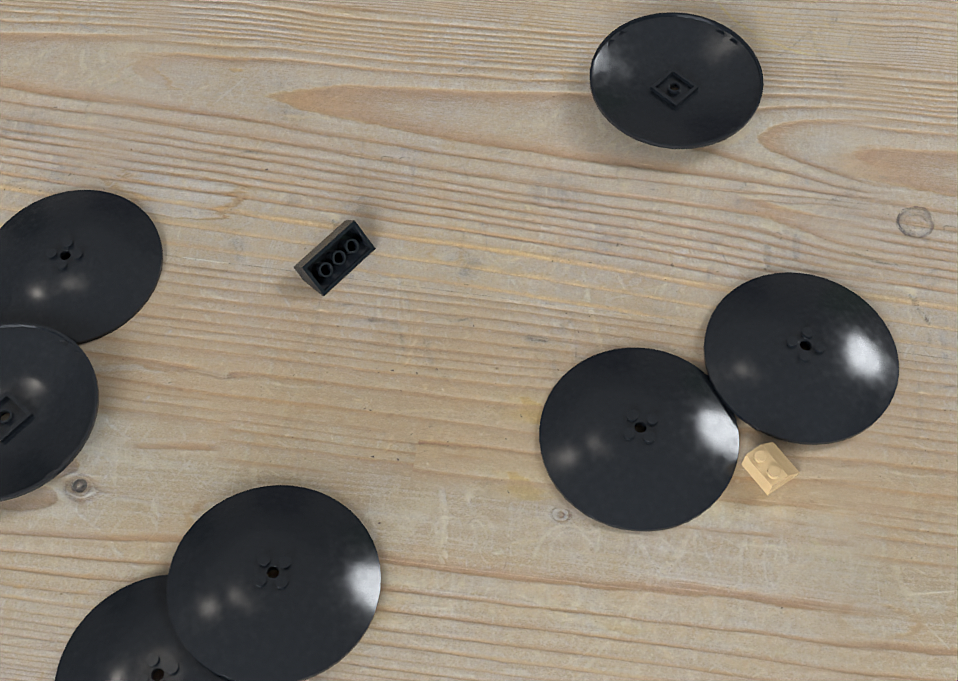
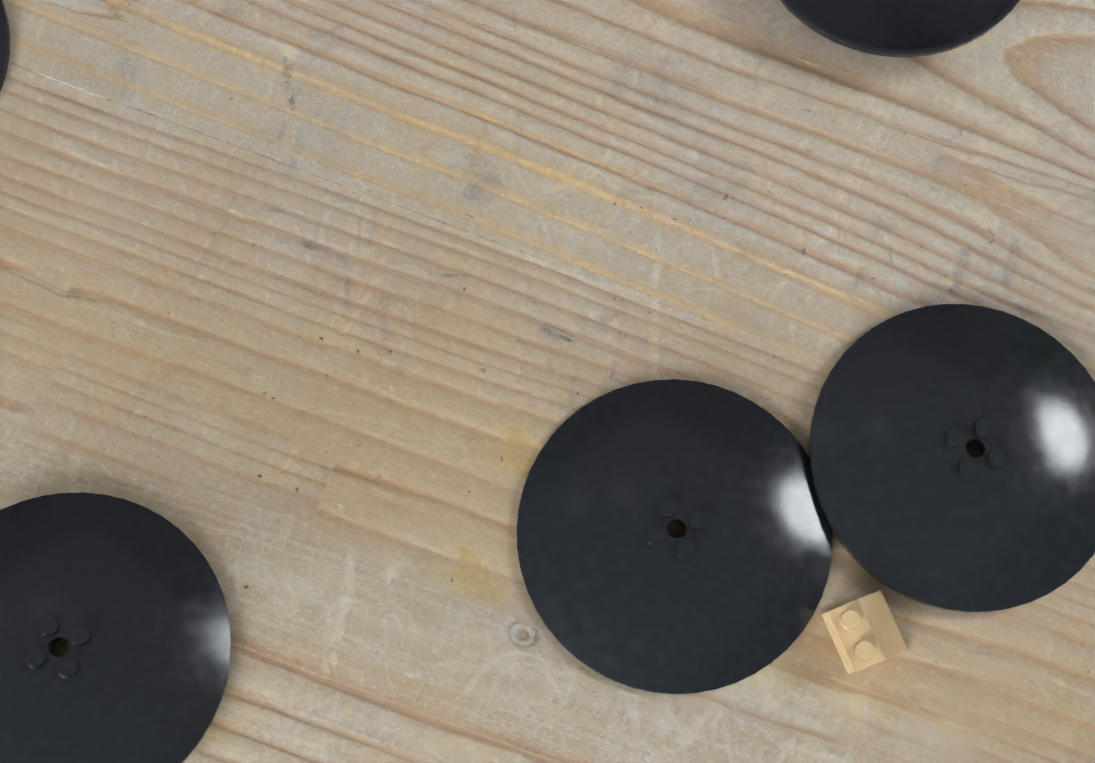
camera: 10 degrees right, 15 degrees up
(334, 257) = (271, 126): black slope -> none

